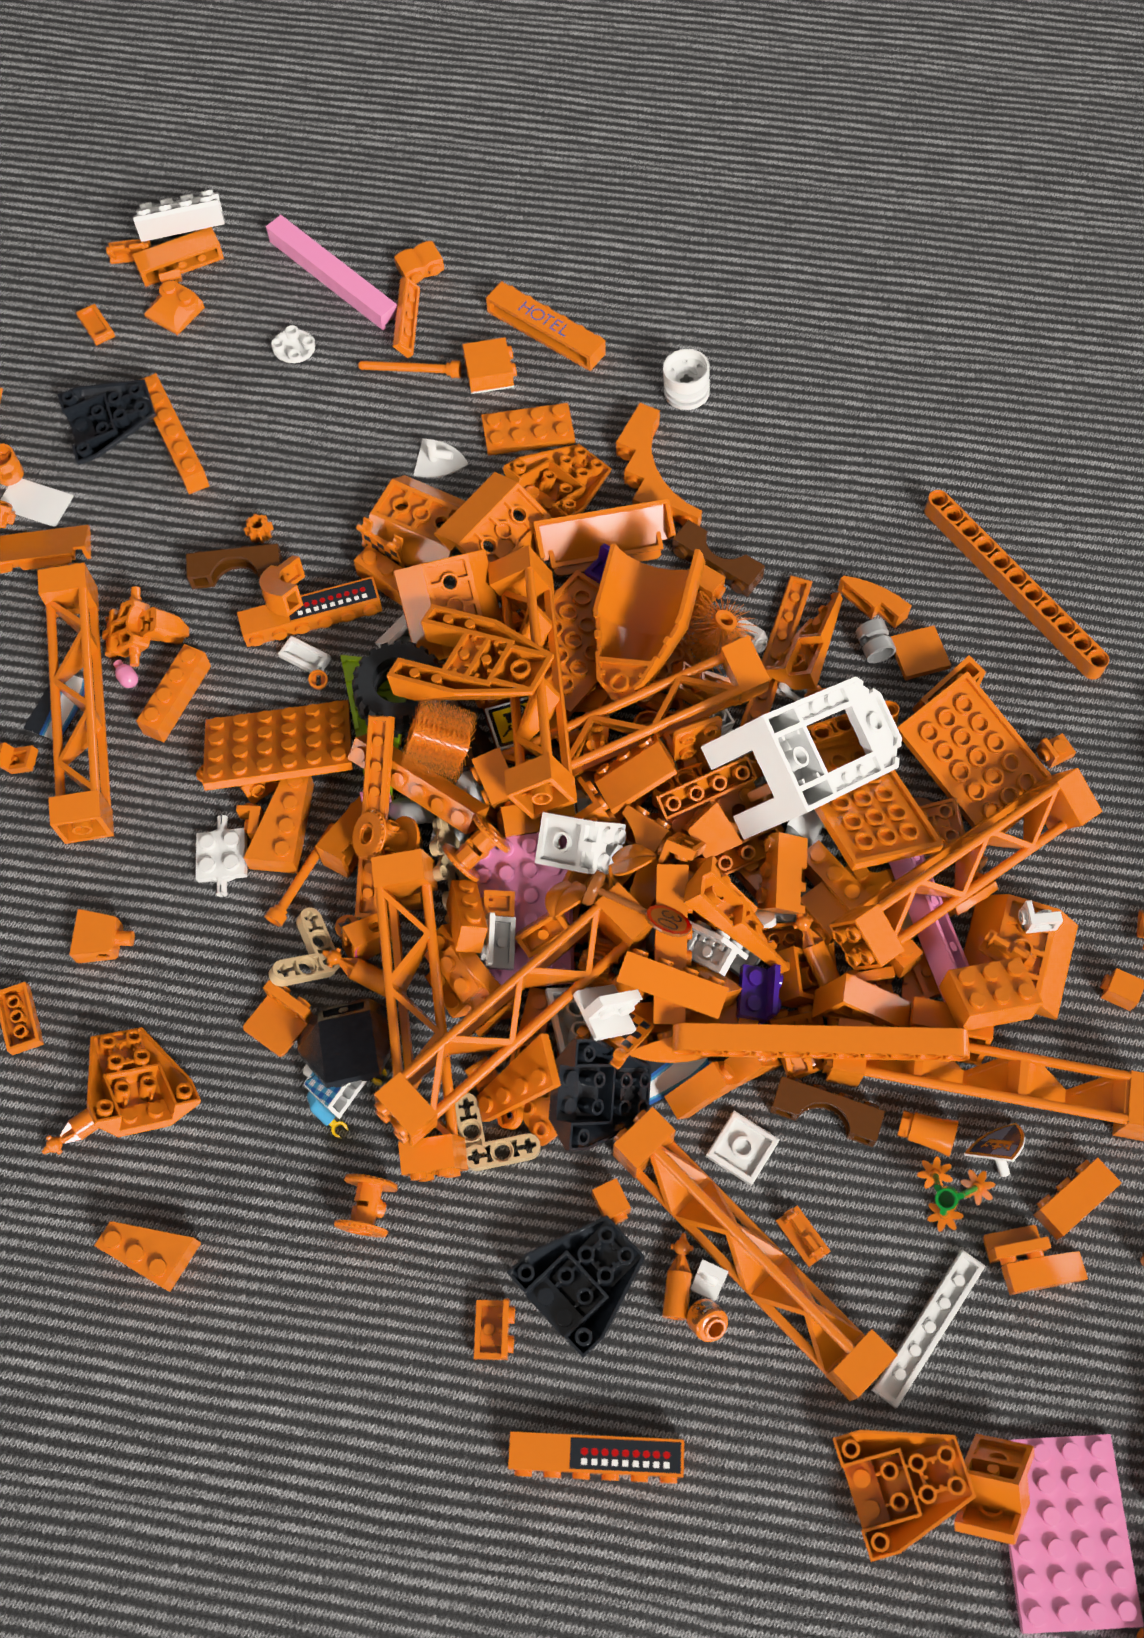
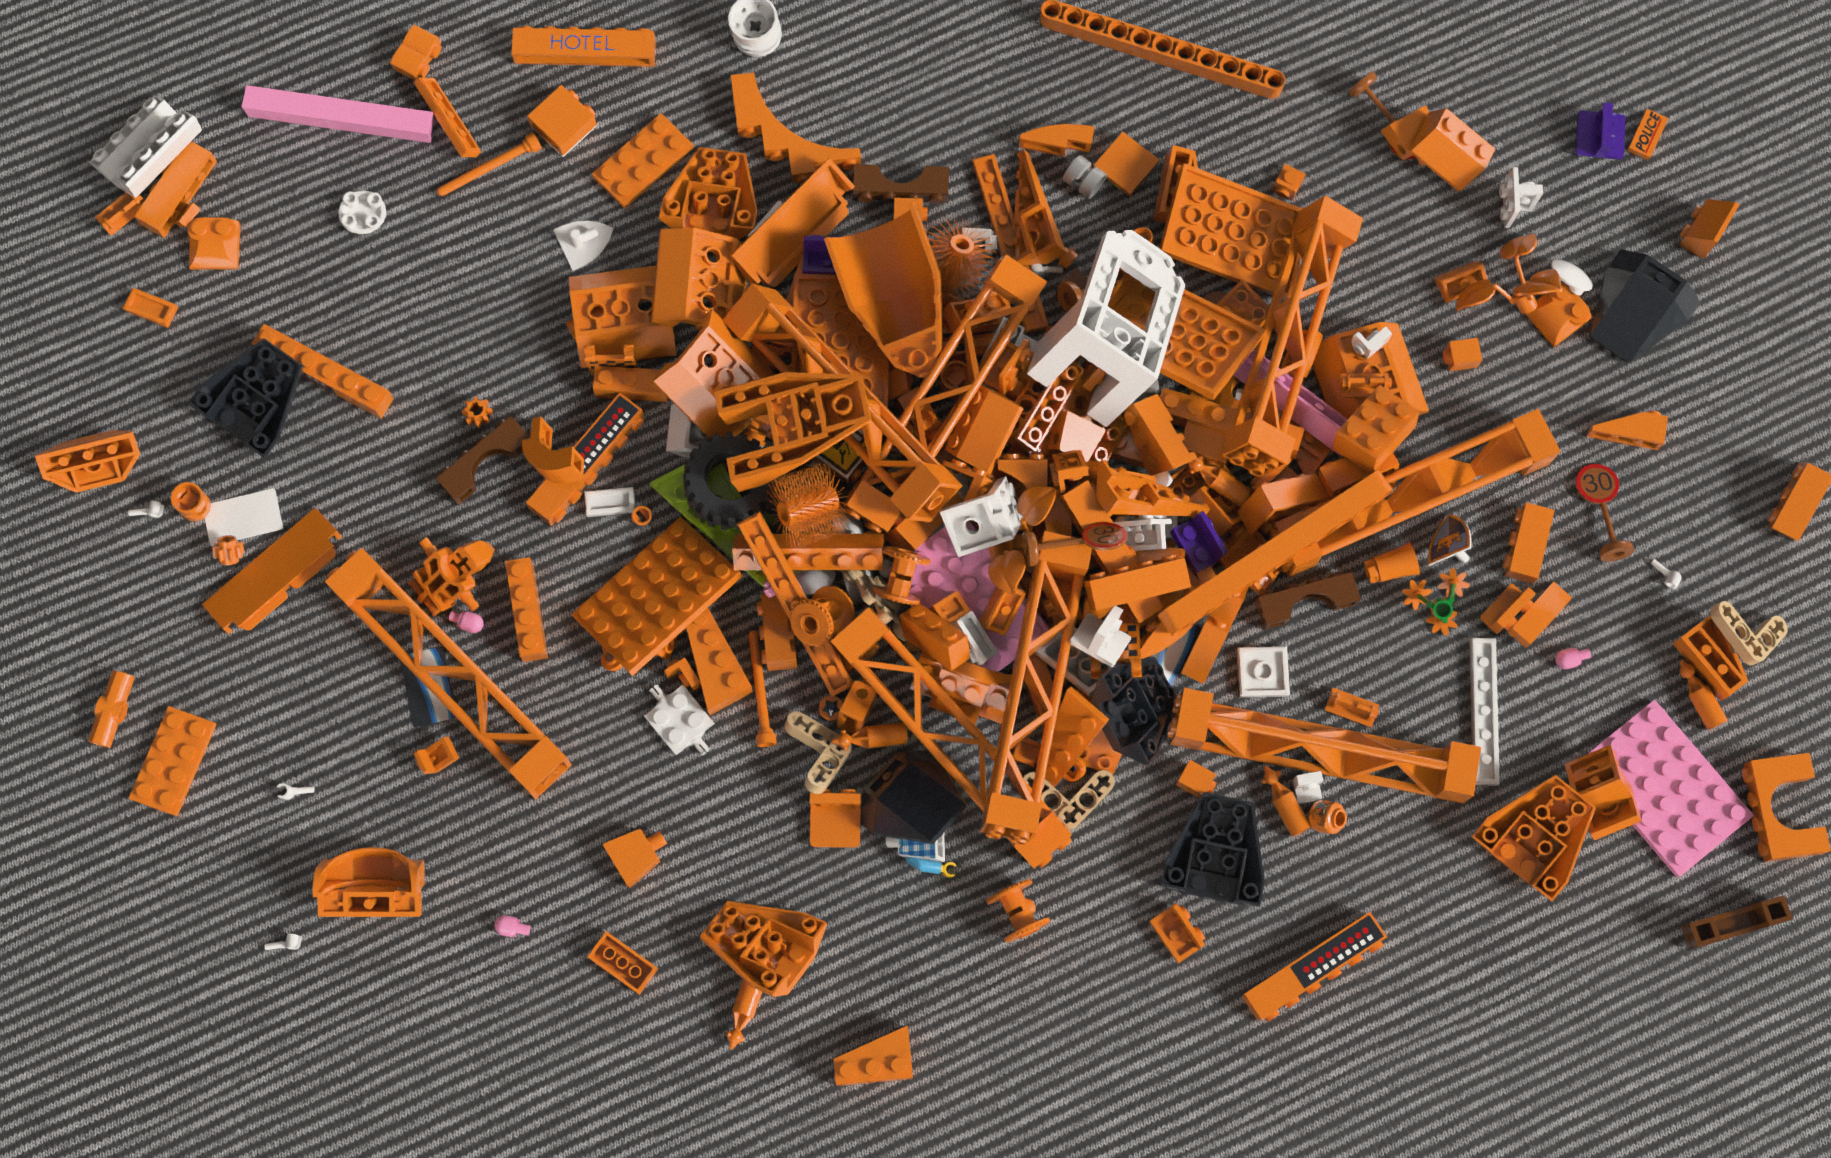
camera: 40 degrees left, 10 degrees up
(1050, 1335) = (1571, 657): none -> bright pink cylinder

